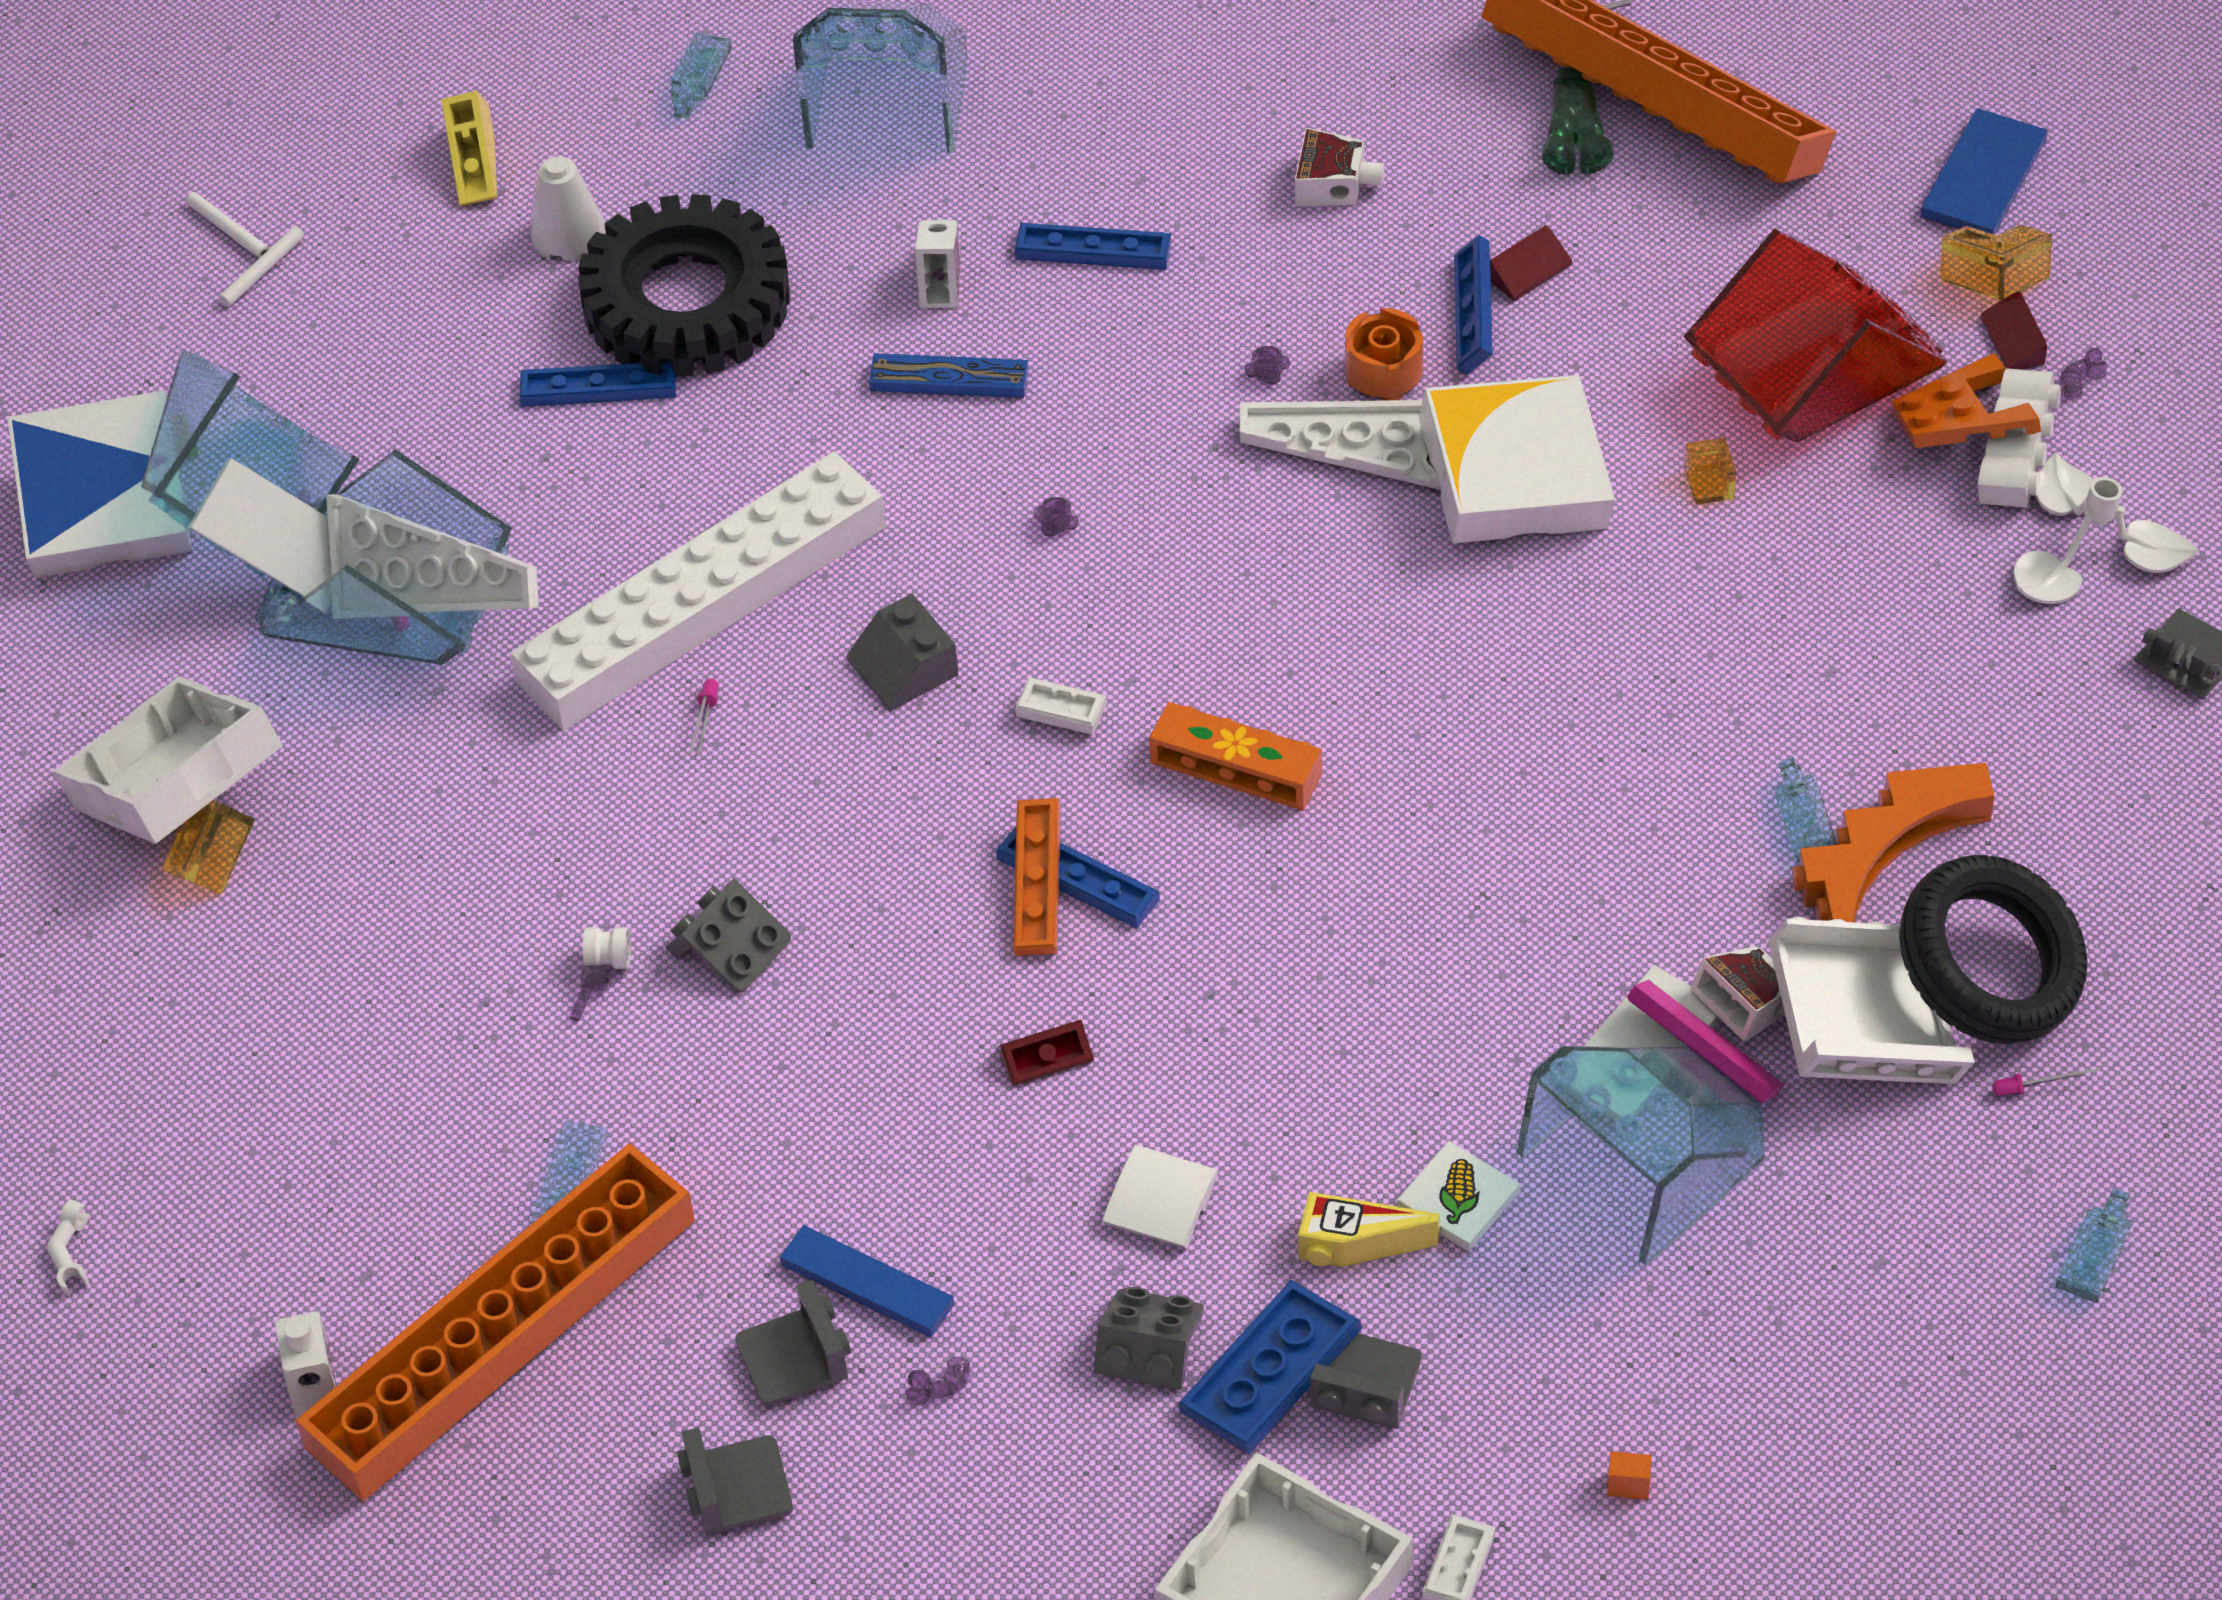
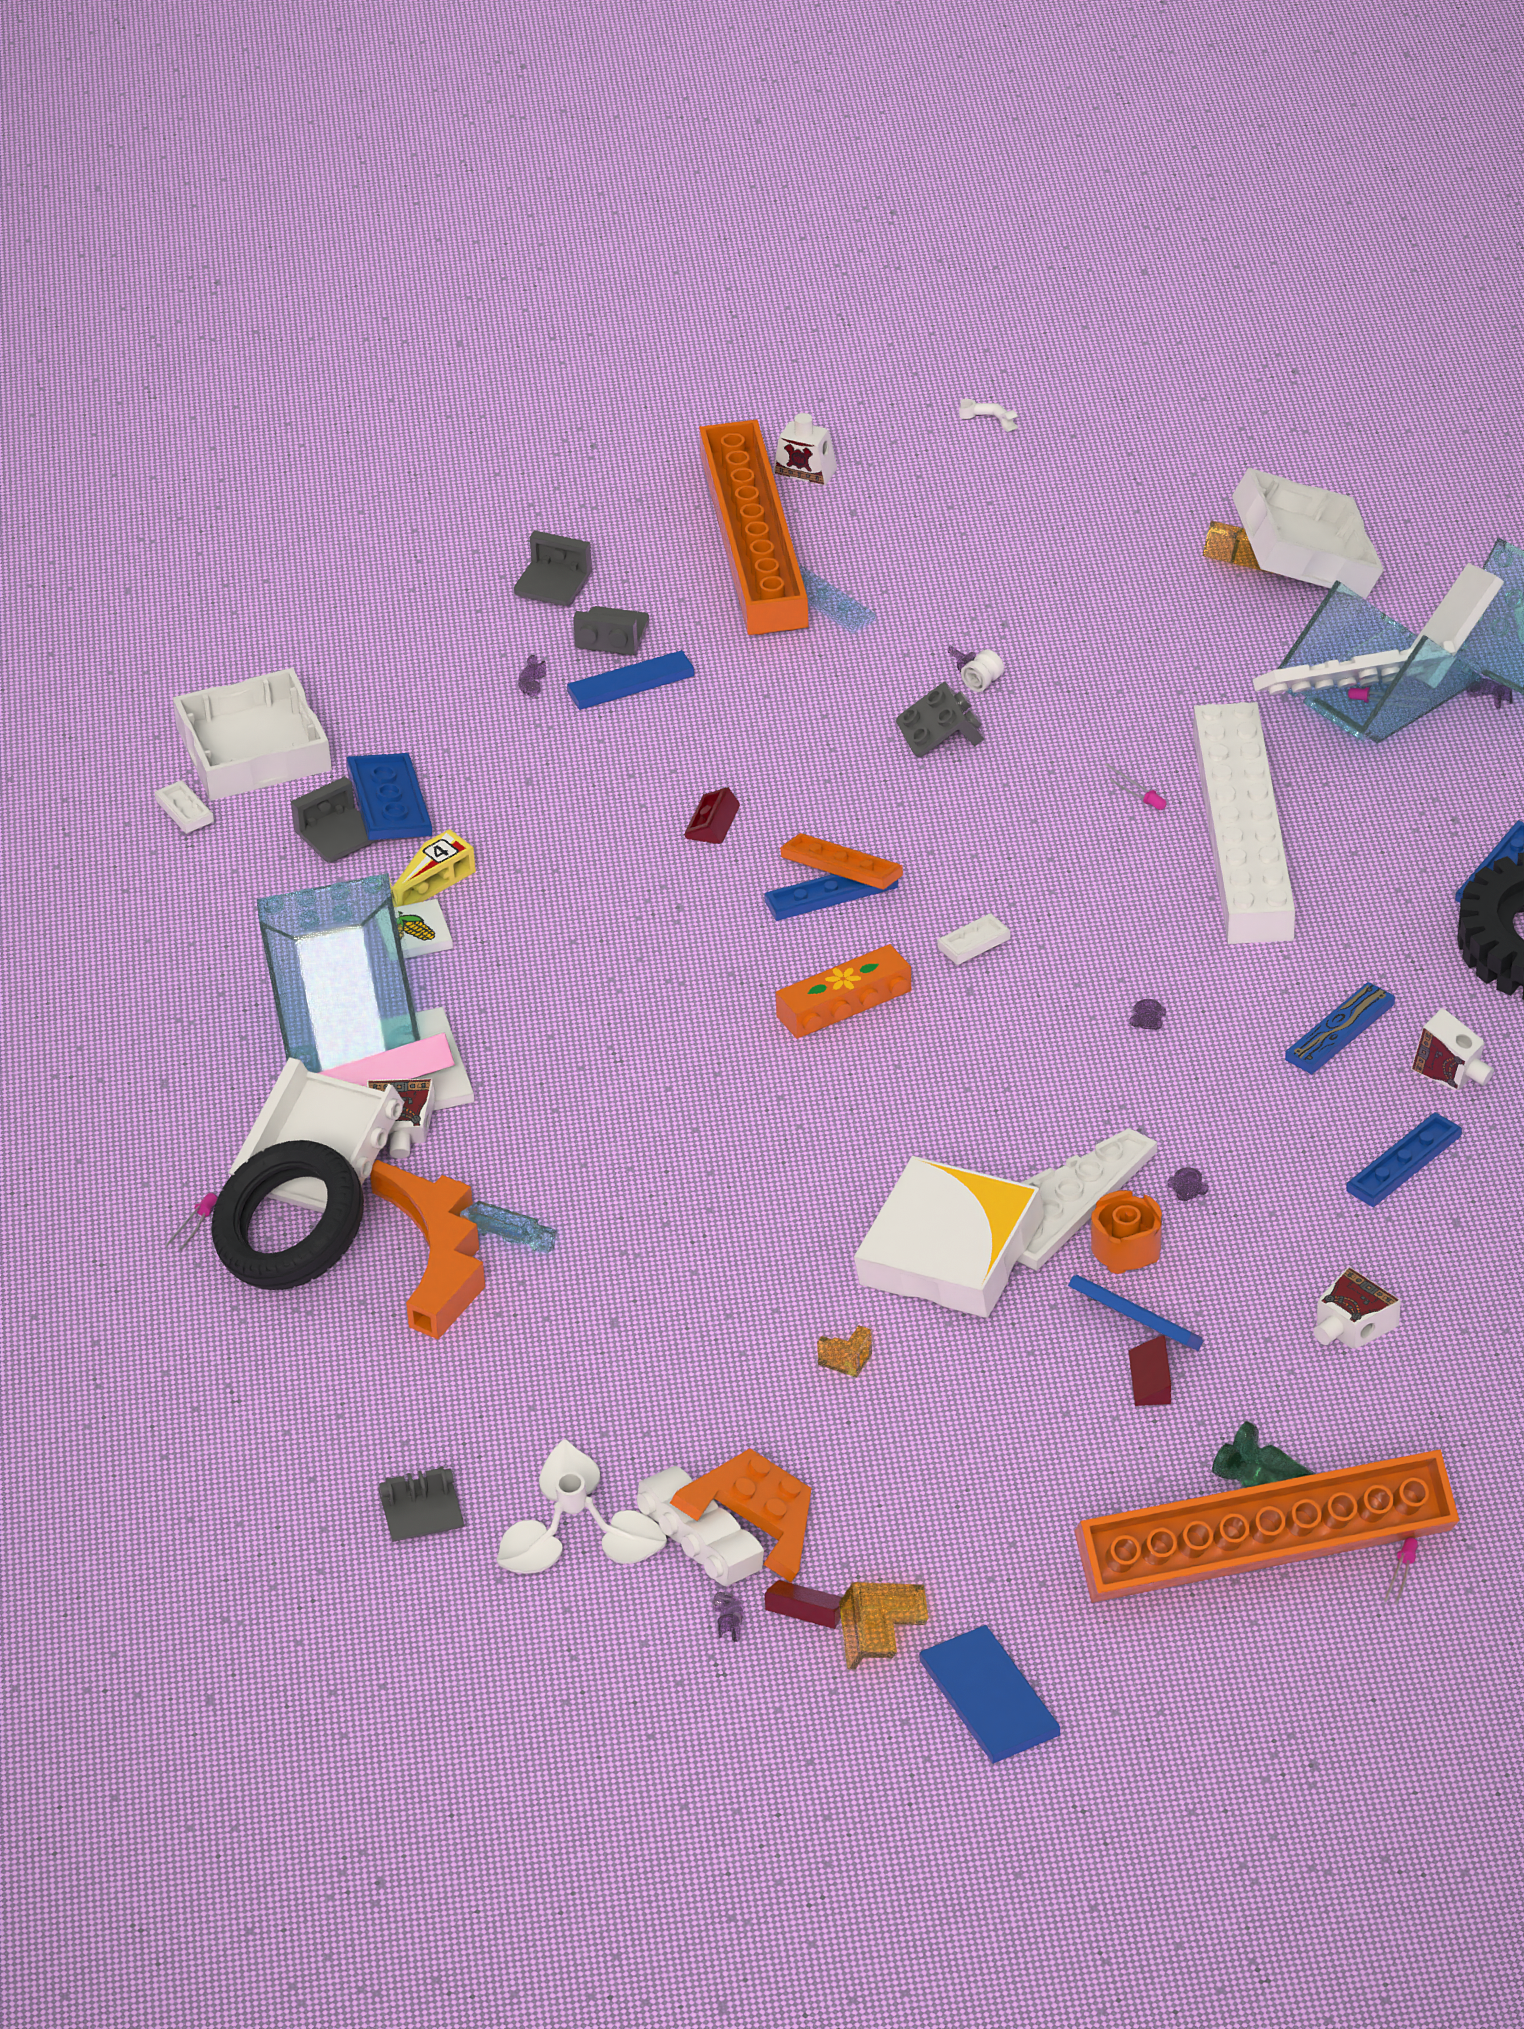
camera: 125 degrees right, 10 degrees down
(903, 653) = (1092, 893): dark grey slope -> none
(1146, 1337) = (467, 760): dark grey bracket -> none
(1160, 1196) = (552, 809): white slope -> none
(1629, 1475) = (152, 894): orange piece -> none
(1808, 339) = (881, 1456): clear red windscreen -> none
(2096, 1249) = (54, 1168): clear light blue hinge -> none

